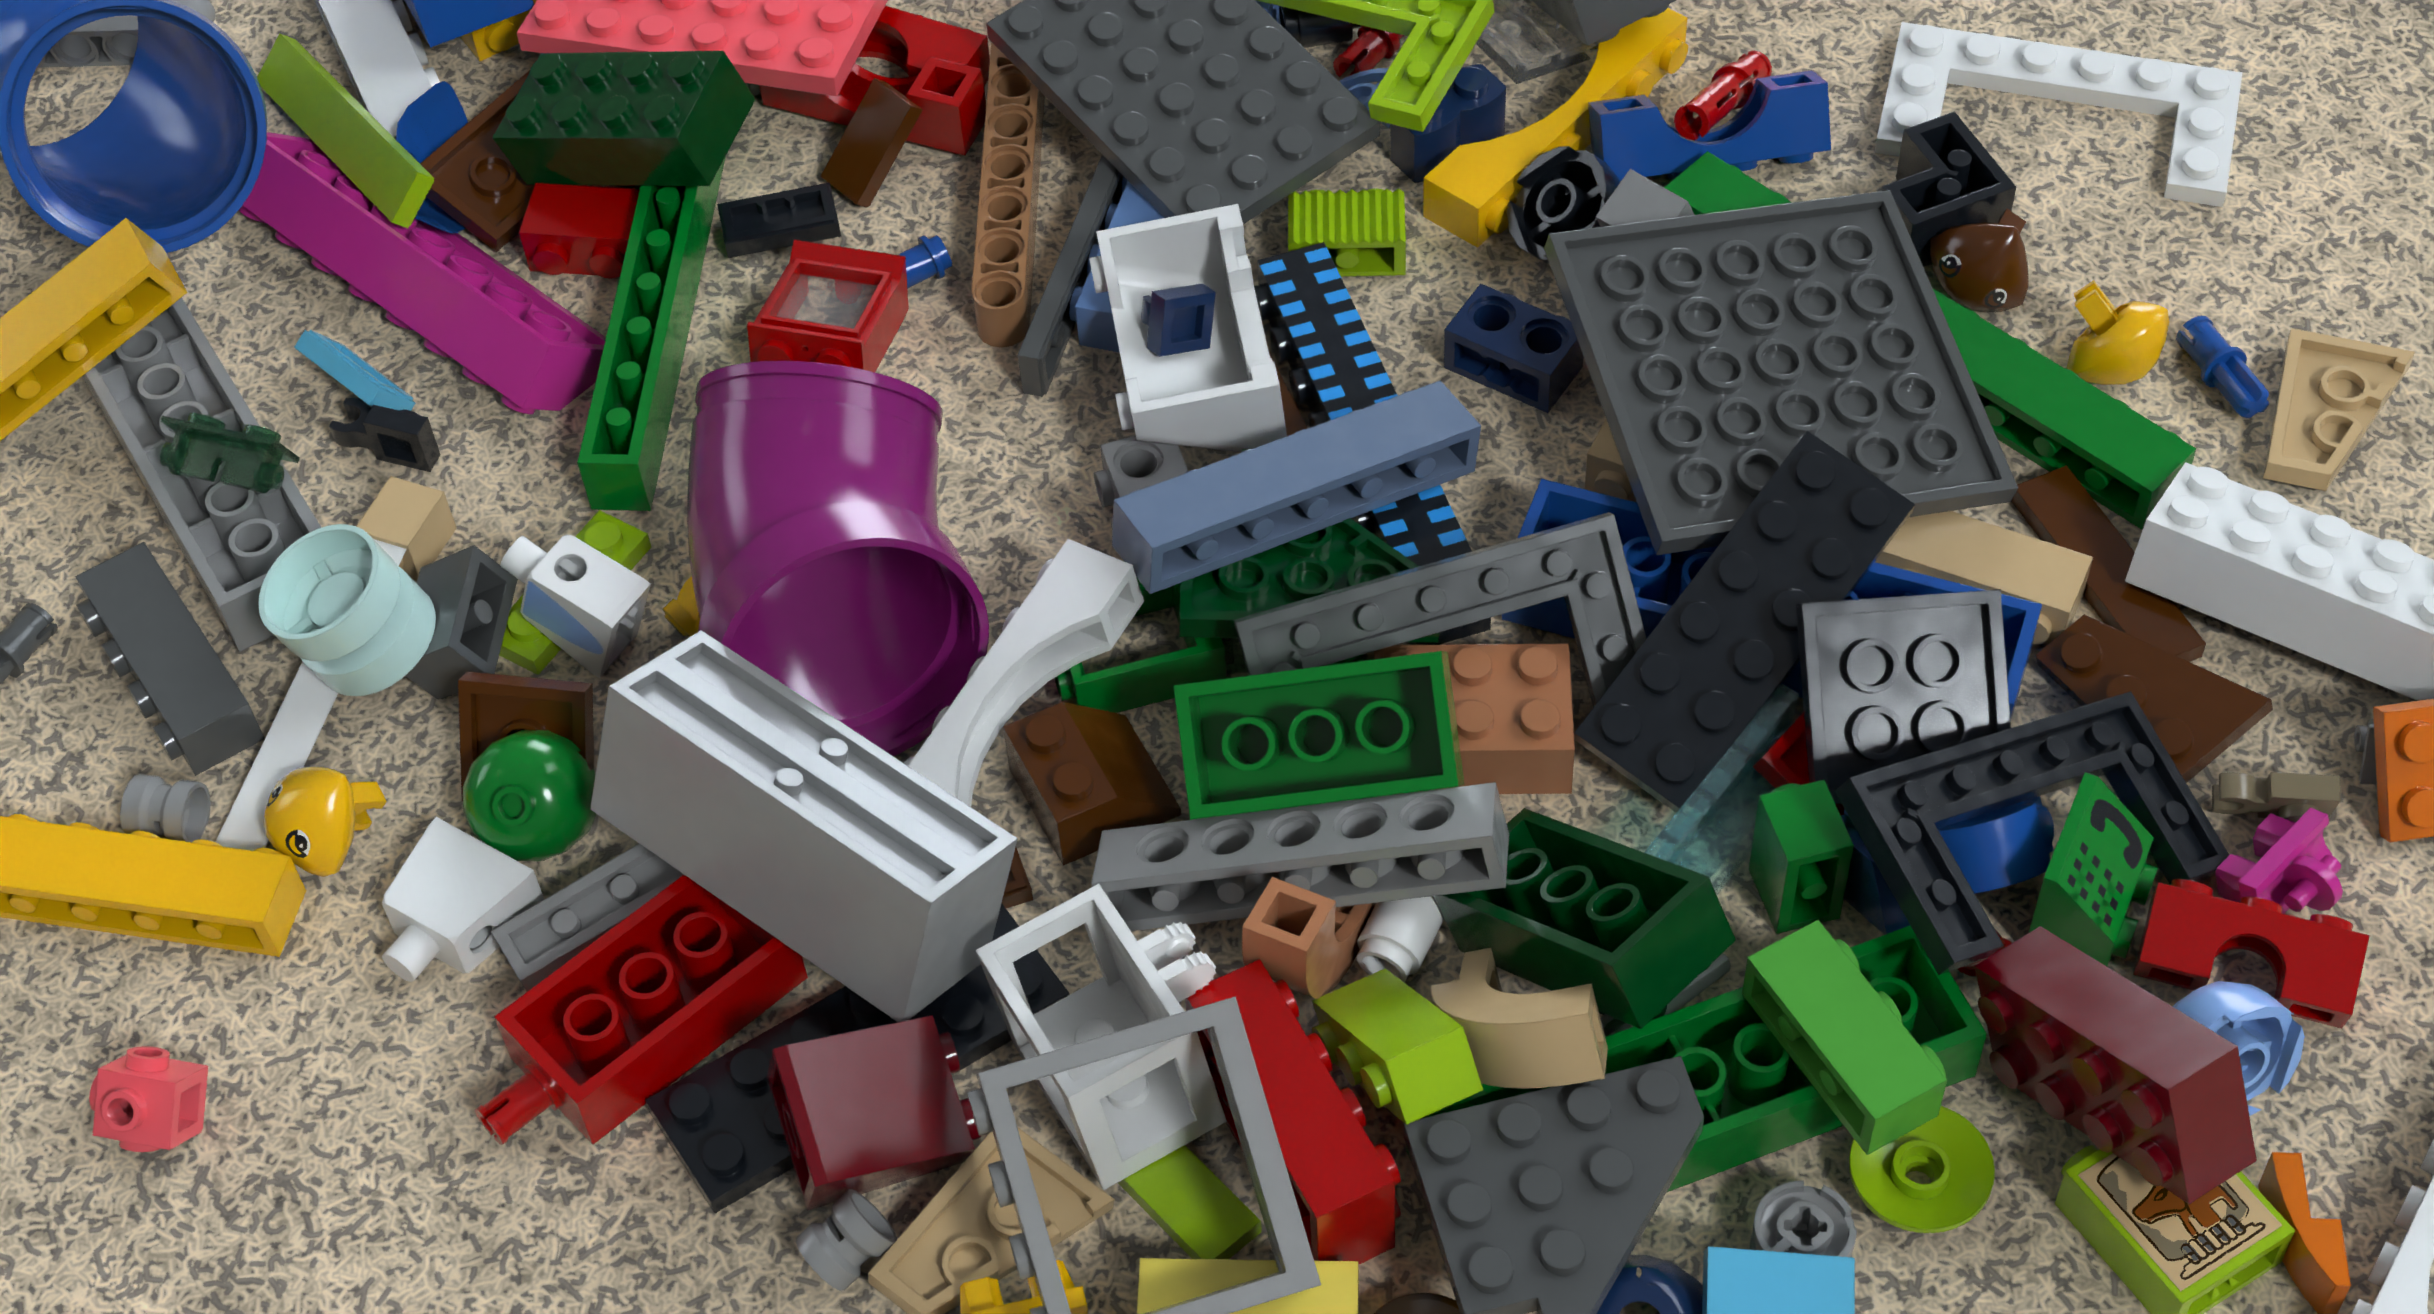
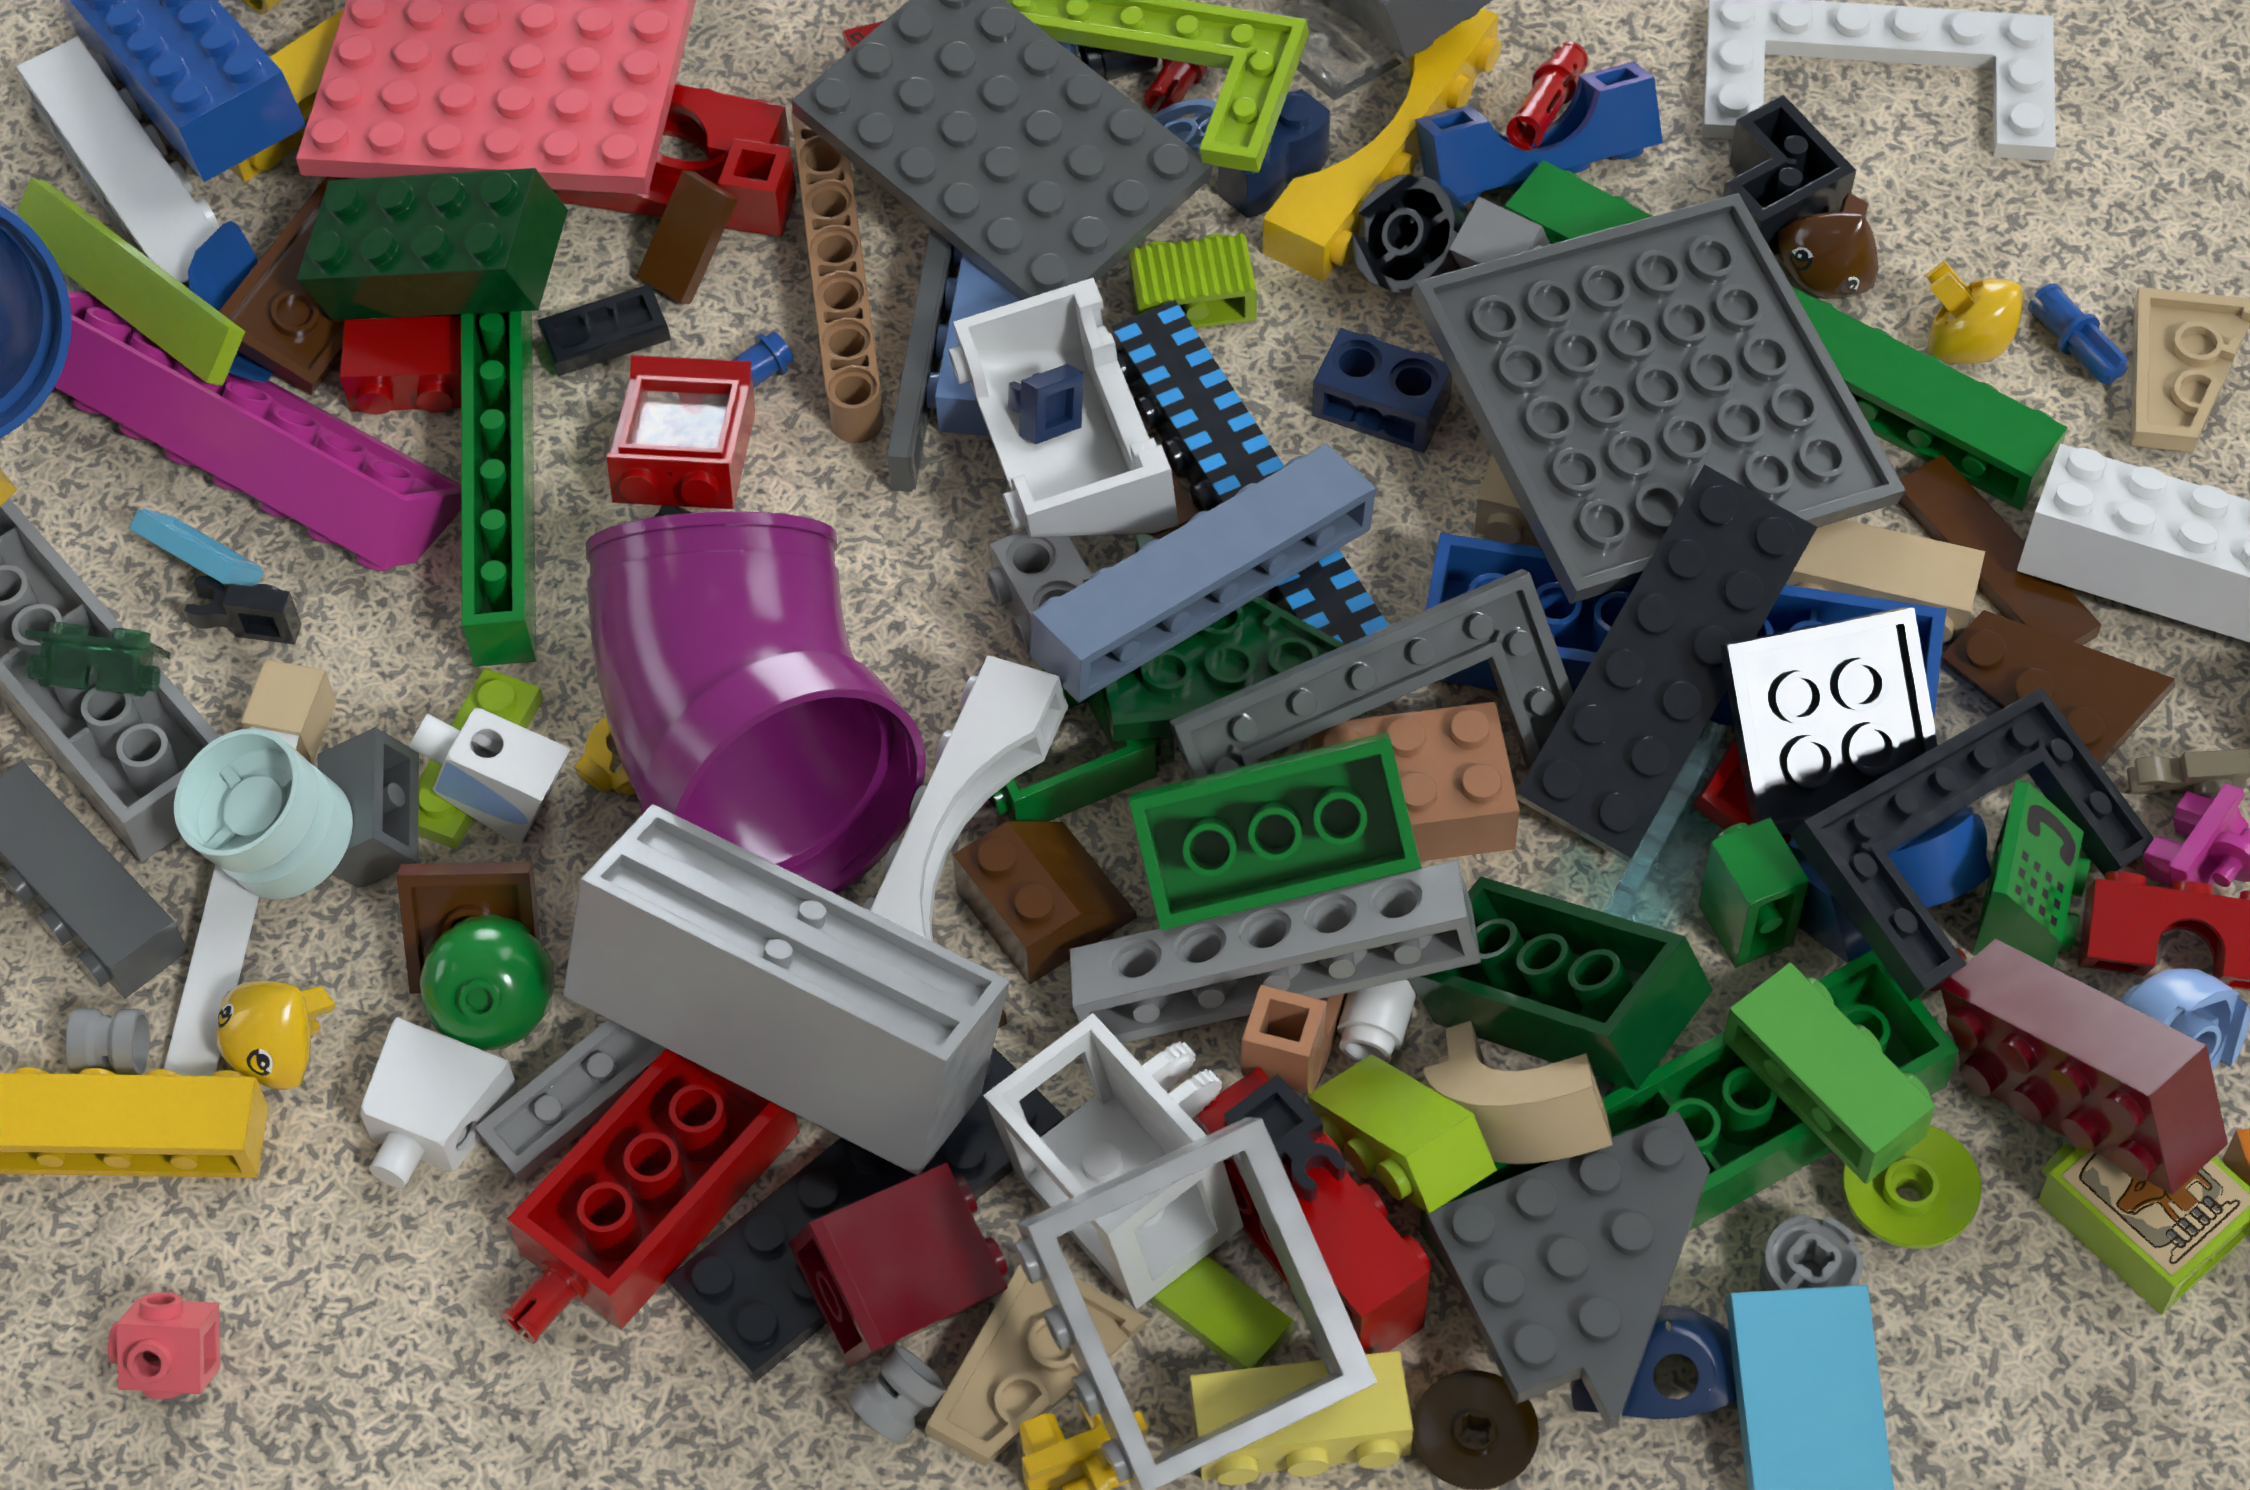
camera: 10 degrees left, 5 degrees up
(1274, 1025) = (1292, 1131): none -> black plate

